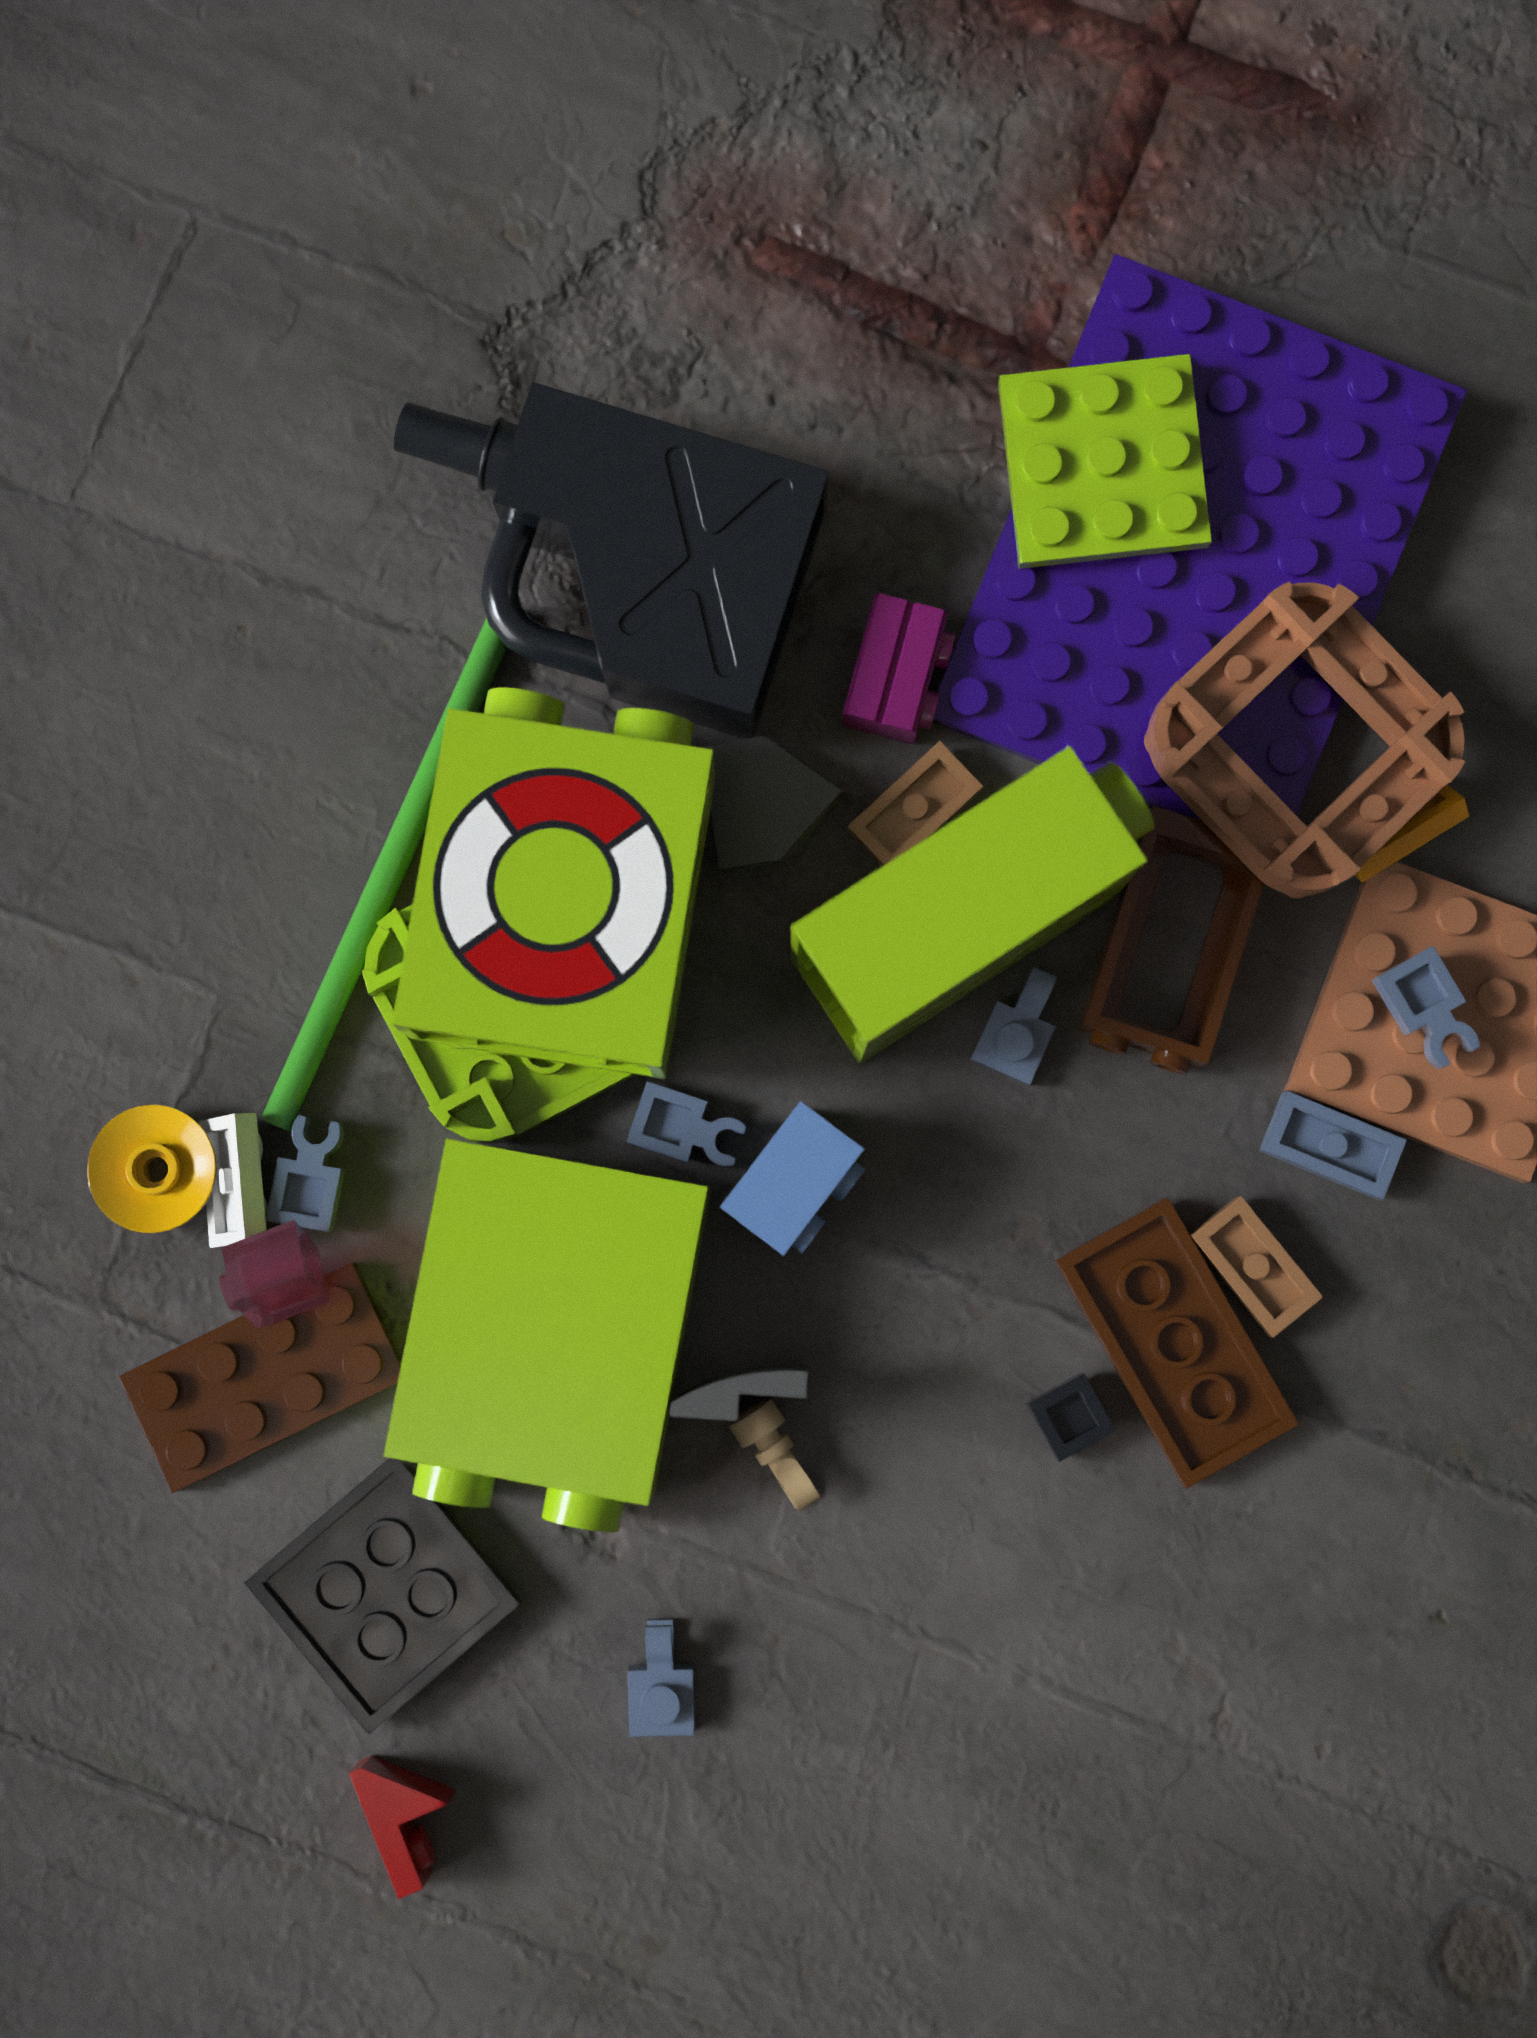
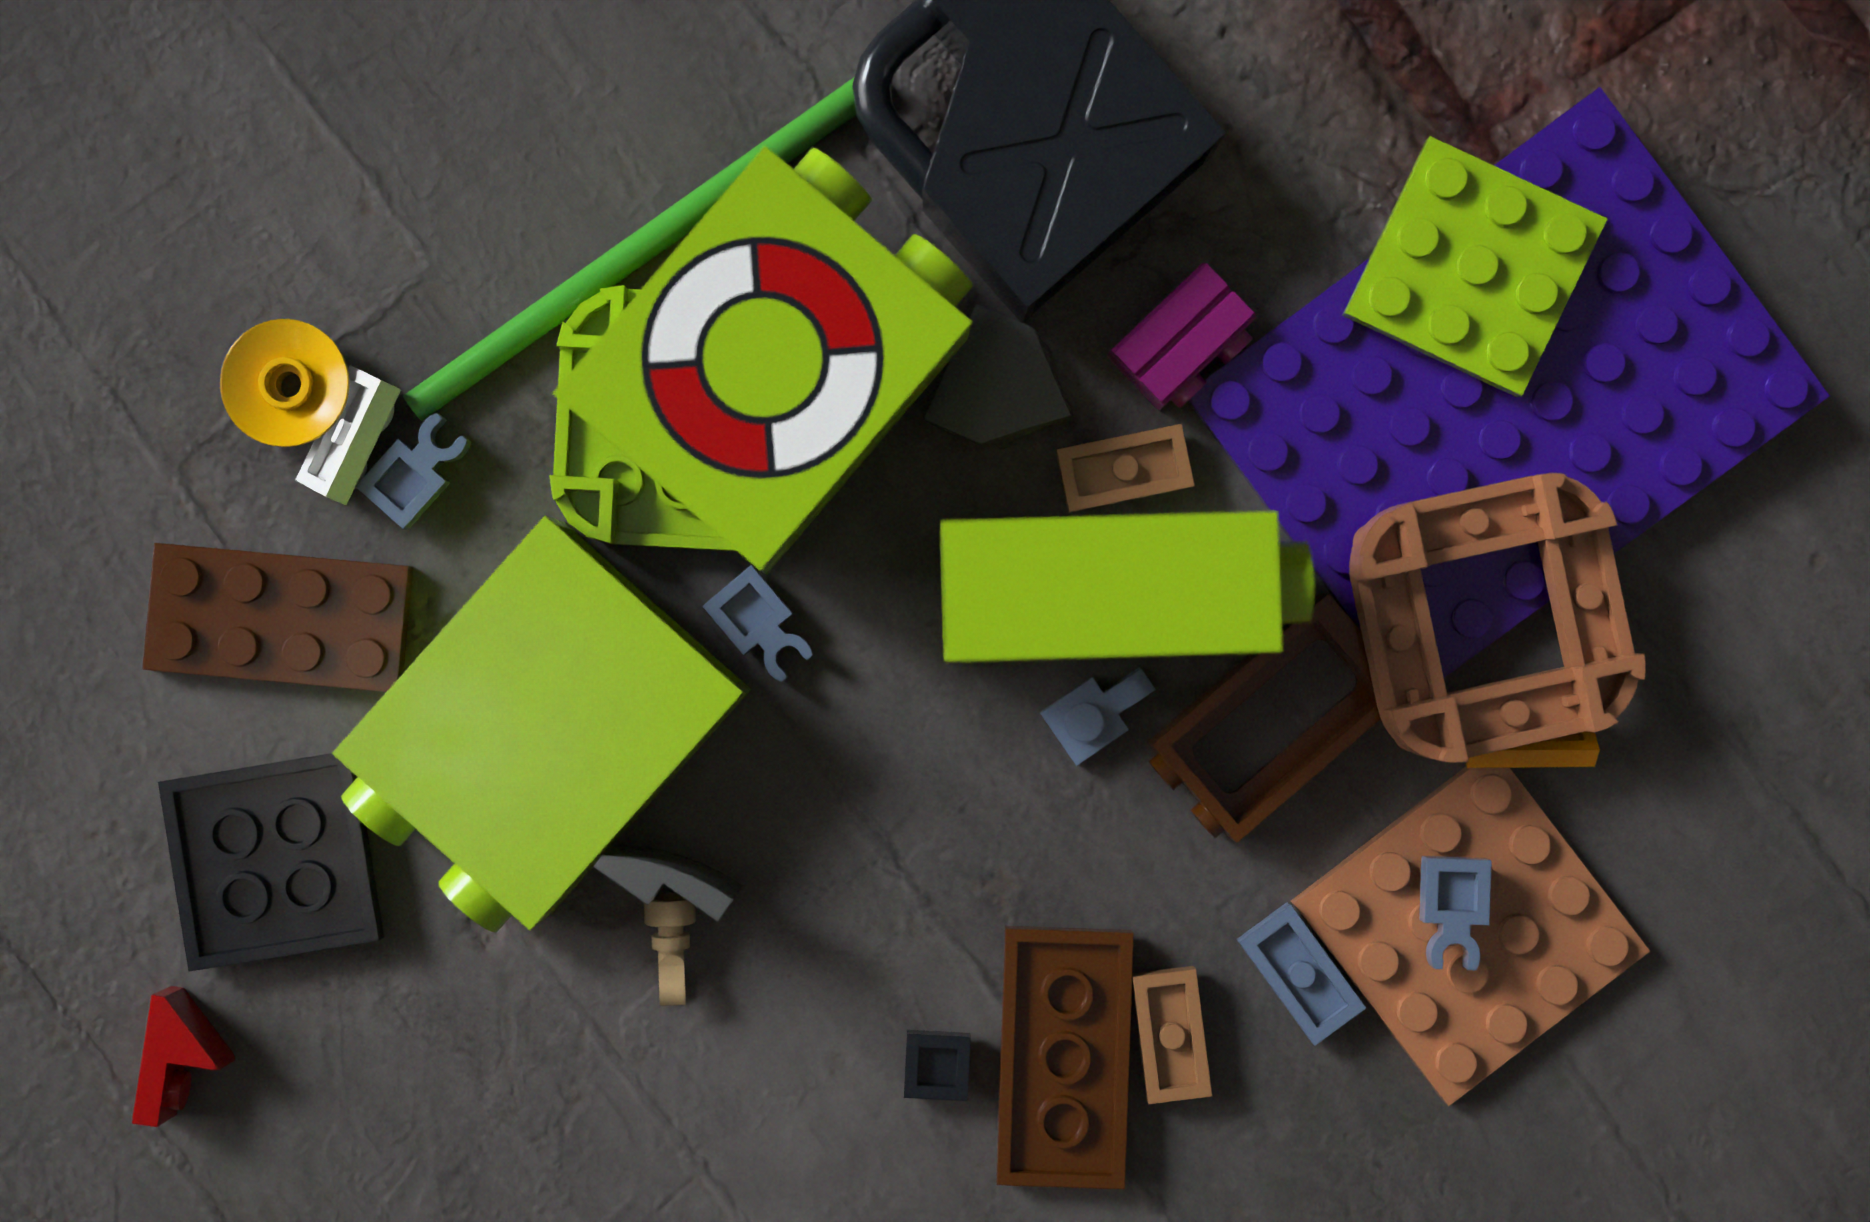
camera: 25 degrees right, 5 degrees up
(273, 1275) = (333, 538): clear pink brick -> none
(661, 1692) = (455, 1081): sand blue plate -> none
(794, 1179) = (820, 730): medium blue brick -> none

